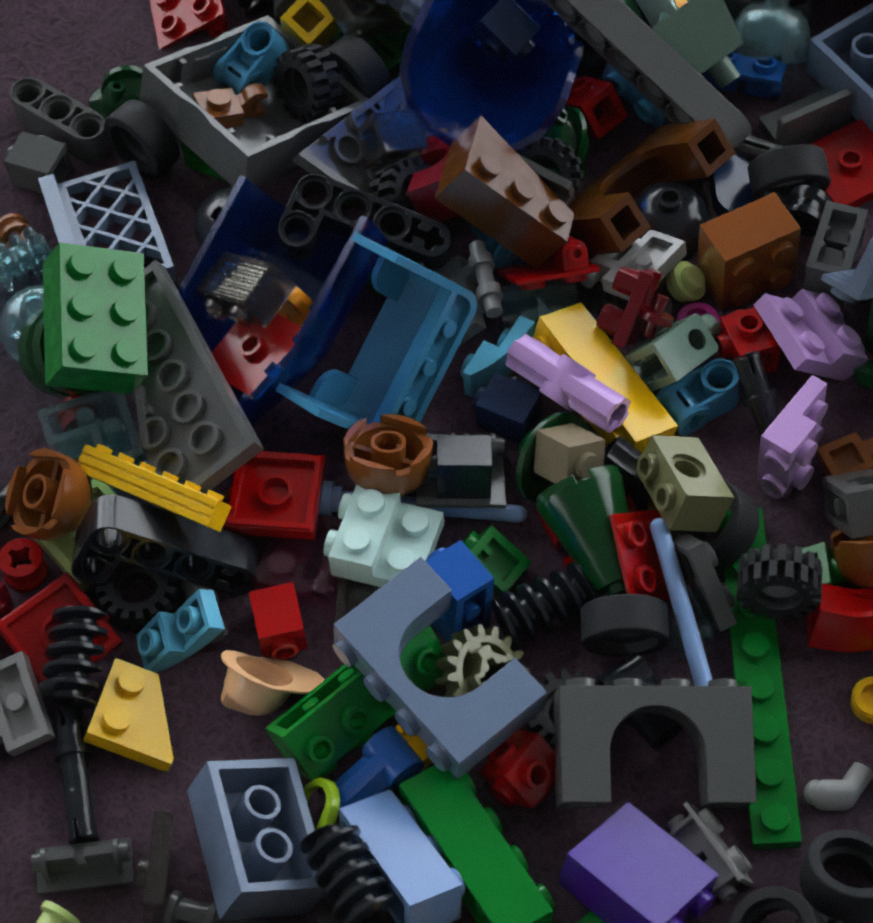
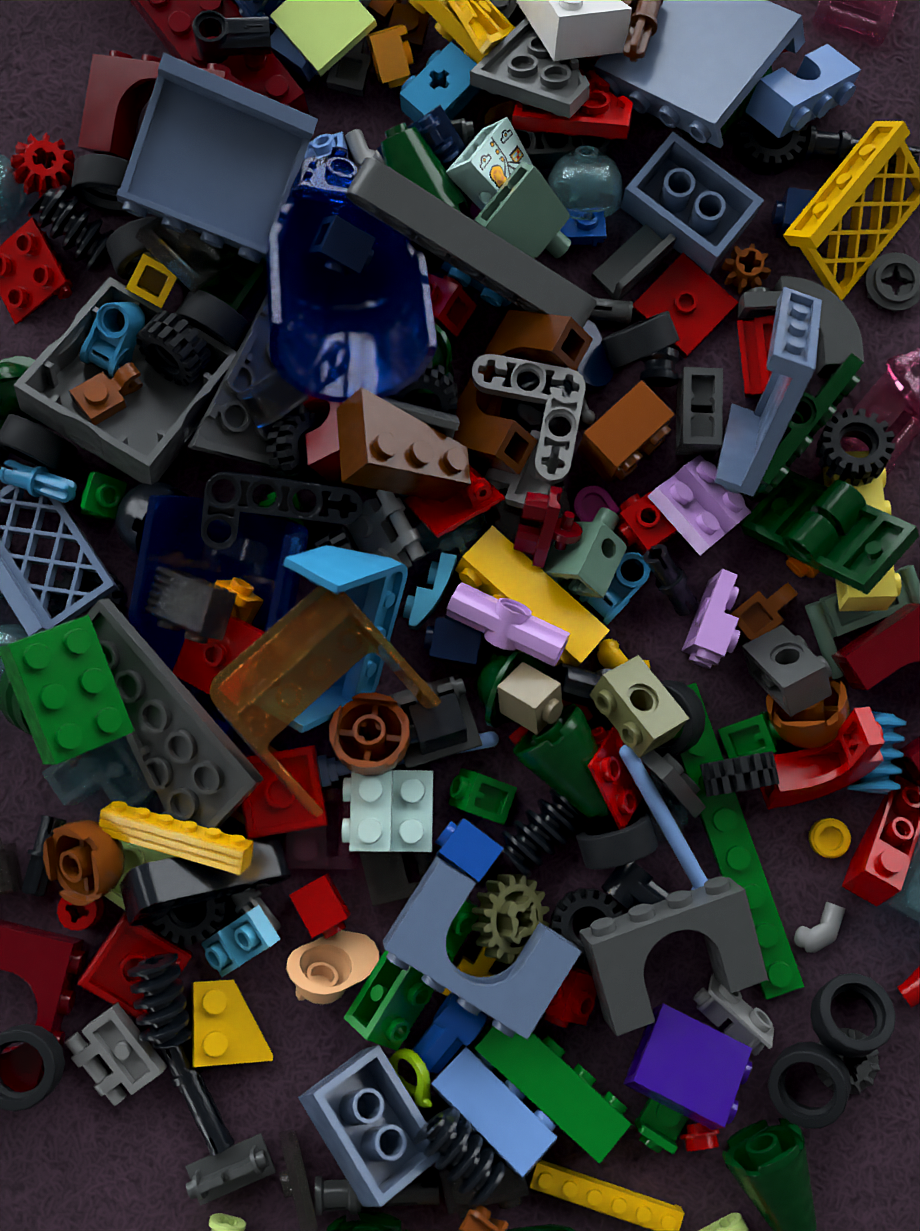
camera: 20 degrees left, 25 degrees up
(131, 166) = (38, 481): none -> dark azure axle
(186, 196) = (102, 496): none -> green bracket
(336, 345) = (295, 666): none -> clear orange windscreen
(676, 199) = (555, 404): none -> light grey beam
(686, 282) = (579, 472): yellowish green plate -> none

